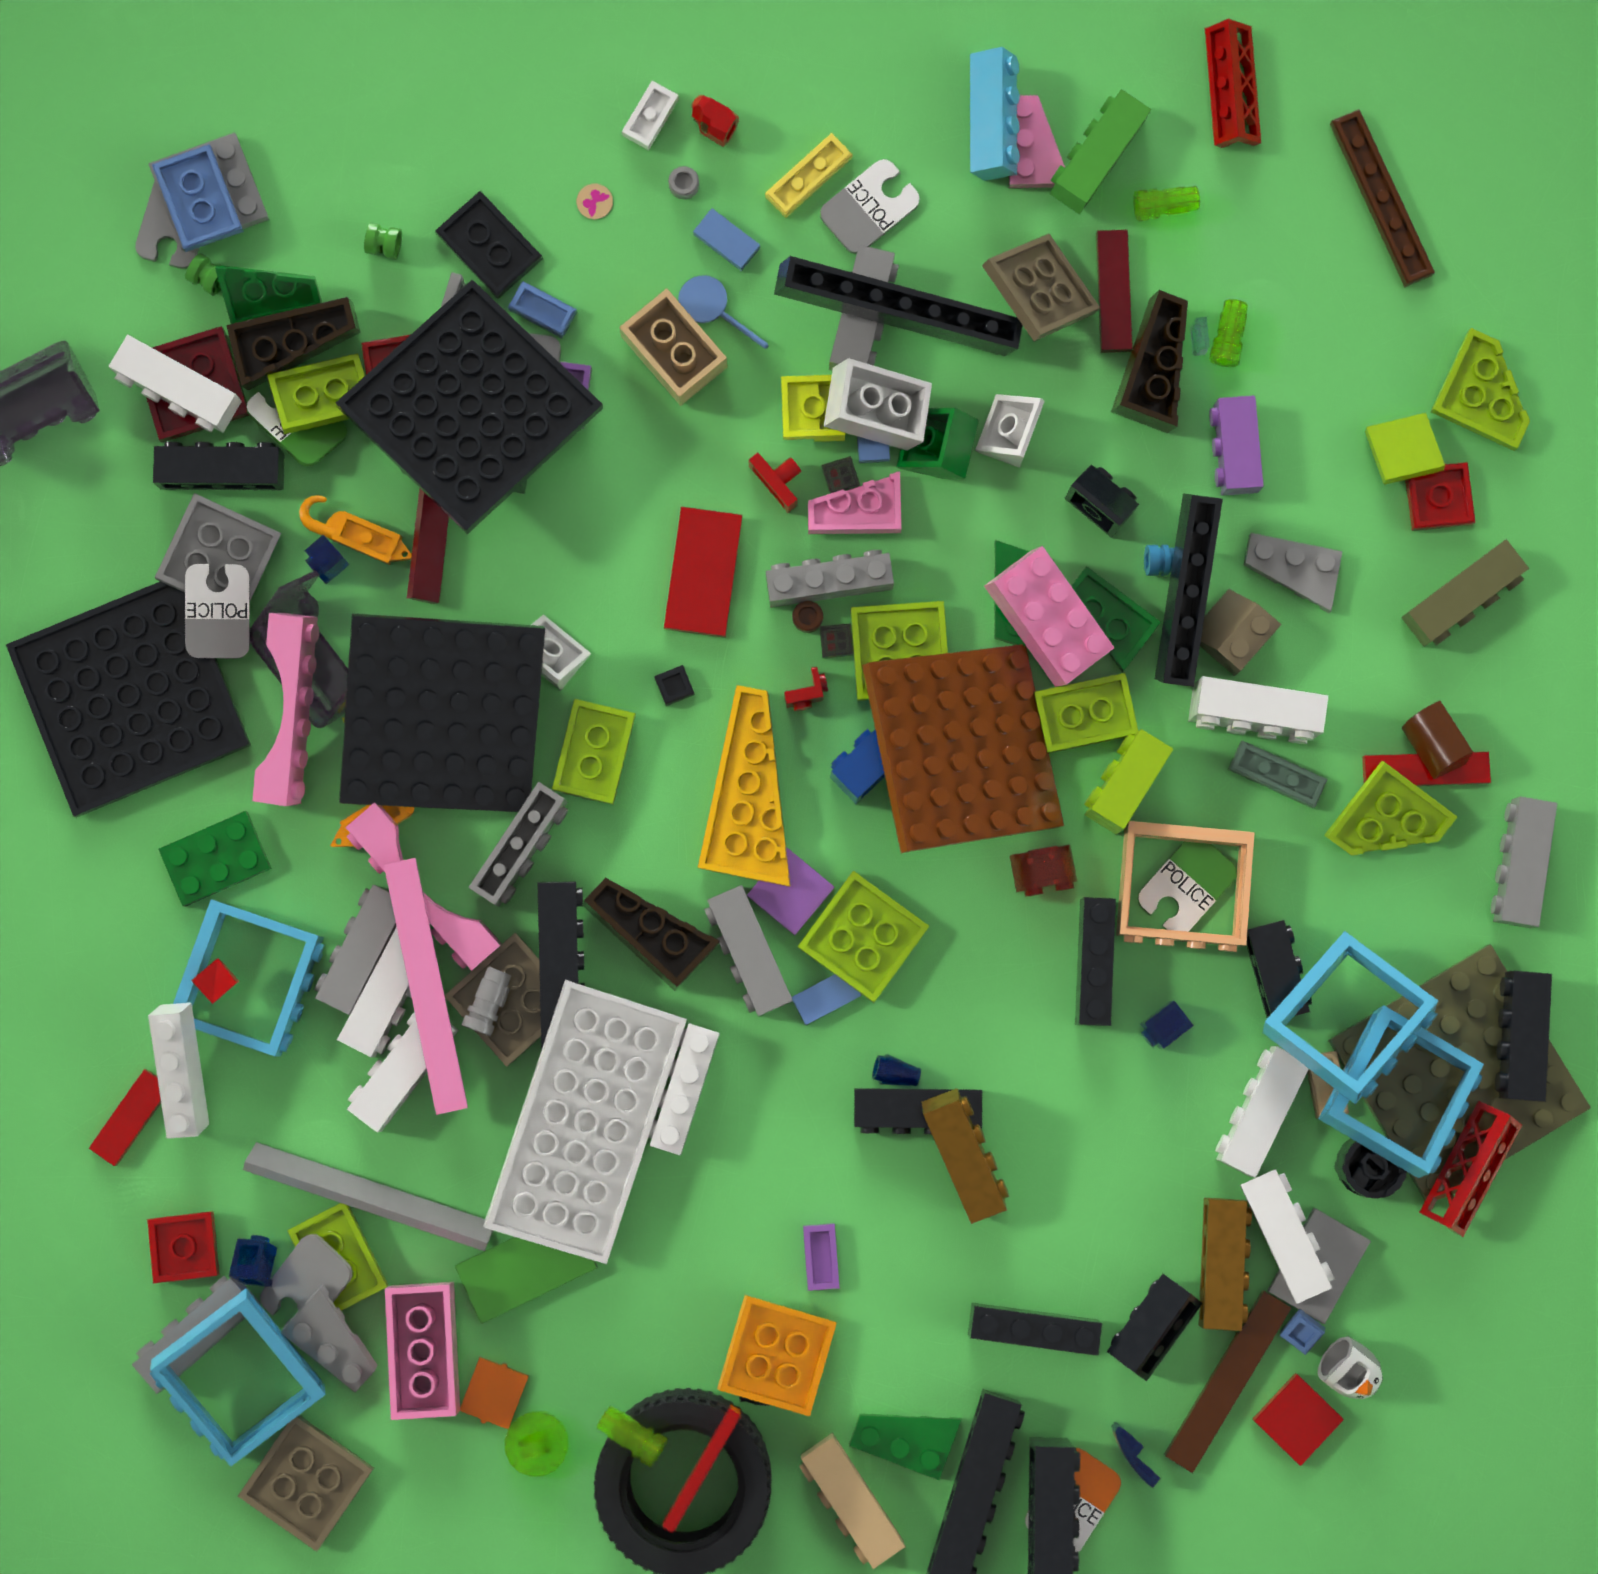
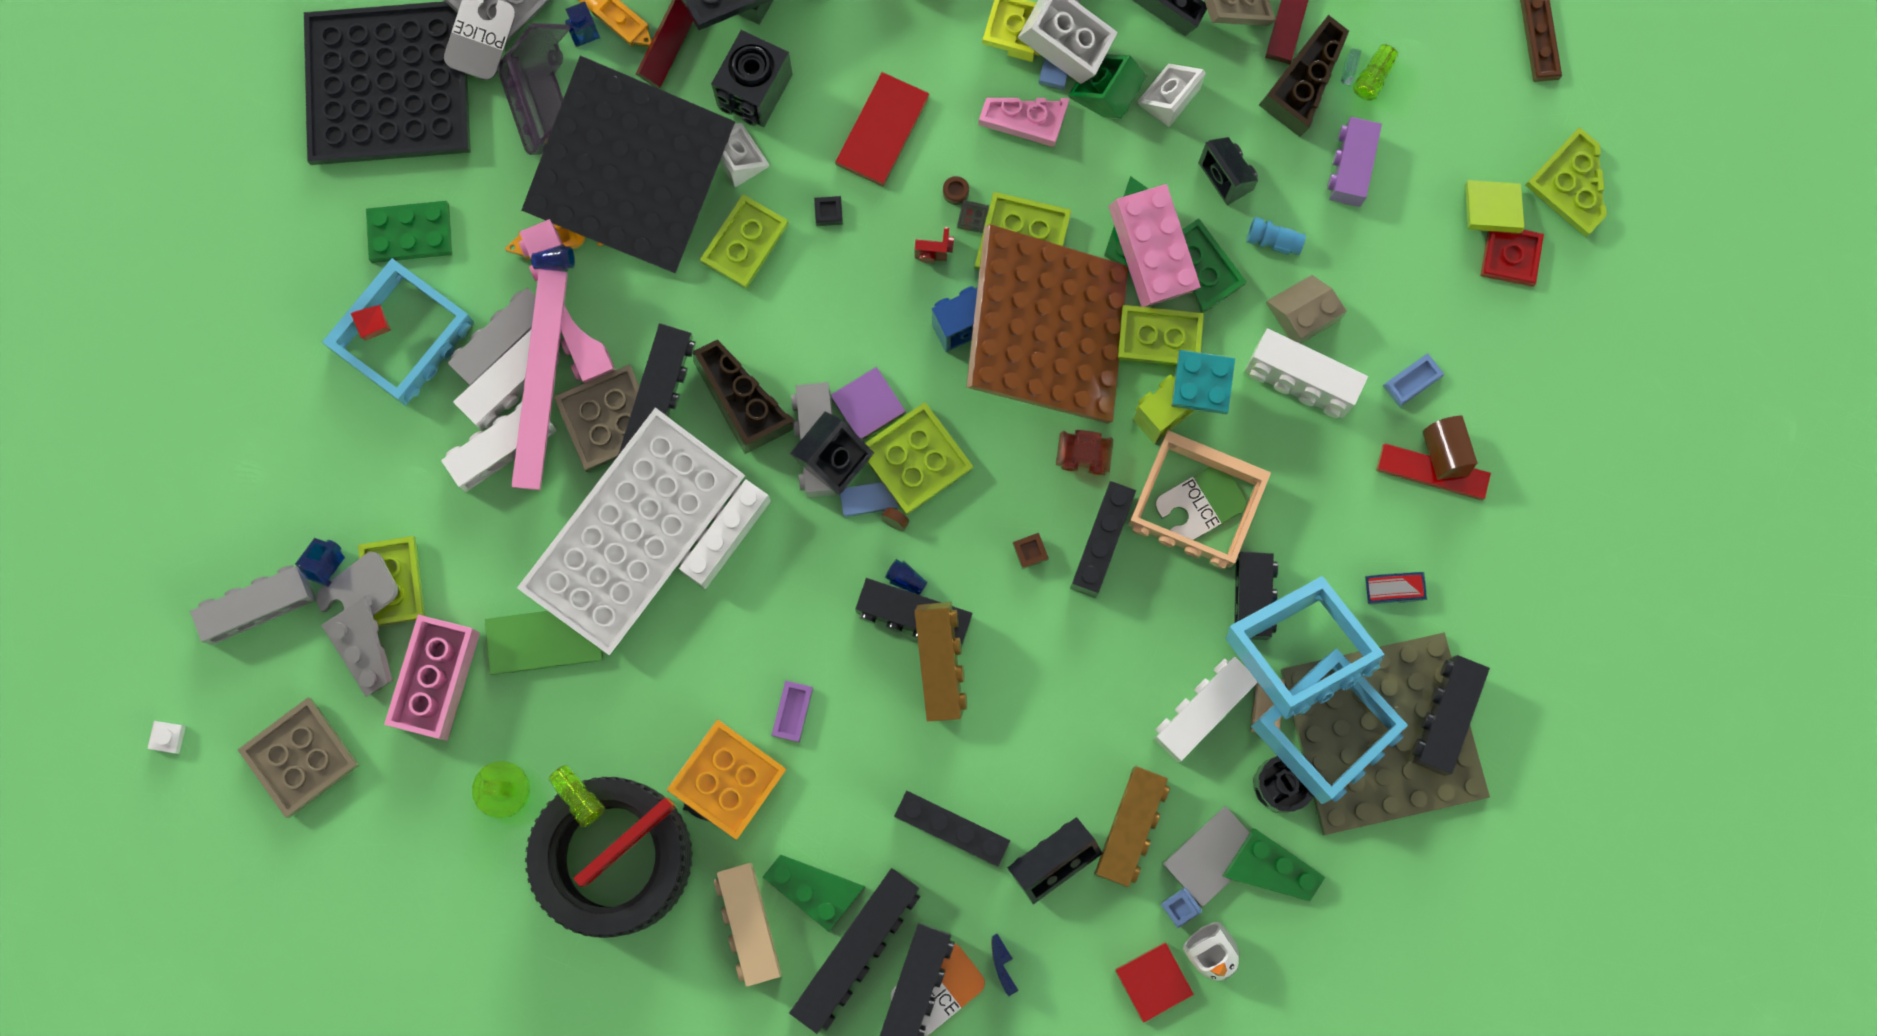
camera: 20 degrees right, 5 degrees down
(128, 1119) = (265, 414): red tile -> none
(153, 1506) = (166, 737): none -> white plate
(178, 1070) = (315, 384): white brick -> none
(183, 1247) = (269, 531): red plate -> none
(201, 1420) = (229, 674): medium azure window -> none
(292, 645) = (486, 175): bright pink arch -> none
(368, 1196) = (434, 539): light grey tile -> none
(397, 847) = (555, 258): none -> clear blue cone
(489, 997) = (589, 406): light grey axle -> none
(494, 1393) = (480, 736): orange piece -> none
(518, 845) = (656, 294): light grey brick -> none
(543, 585) = (752, 79): none -> black brick
(745, 814) = (852, 328): yellow wing -> none
(774, 964) = (832, 452): none -> black slope
(777, 479) = (966, 73): red tile -> none
(829, 579) = (982, 163): light grey brick -> none
(840, 475) = (1020, 86): clear smoke tile -> none
(863, 1011) = (895, 519): none -> reddish brown tile
(1020, 998) = (1030, 551): none -> reddish brown plate
(1153, 760) = (1203, 382): none -> teal plate
(1165, 1025) = (1145, 611): clear blue brick -> none
(1188, 589) = (1277, 257): black brick -> none
(1227, 1381) = (1103, 929): reddish brown tile -> none
(1277, 774) = (1305, 436): sand green tile -> none
(1286, 1236) = (1192, 819): white brick -> none
(1297, 566) = (1374, 273): light grey wing -> none
(1374, 673) = (1413, 380): none -> medium blue tile
(1383, 1258) = (1273, 868): none -> green wing
(1389, 815) = (1390, 497): lime plate -> none
(1425, 912) = (1396, 588): none -> slope
(1465, 593) = (1510, 337): olive brick -> none
(1481, 1171) = (1381, 815): red fence -> none
(1524, 862) = (1494, 572): light grey brick -> none

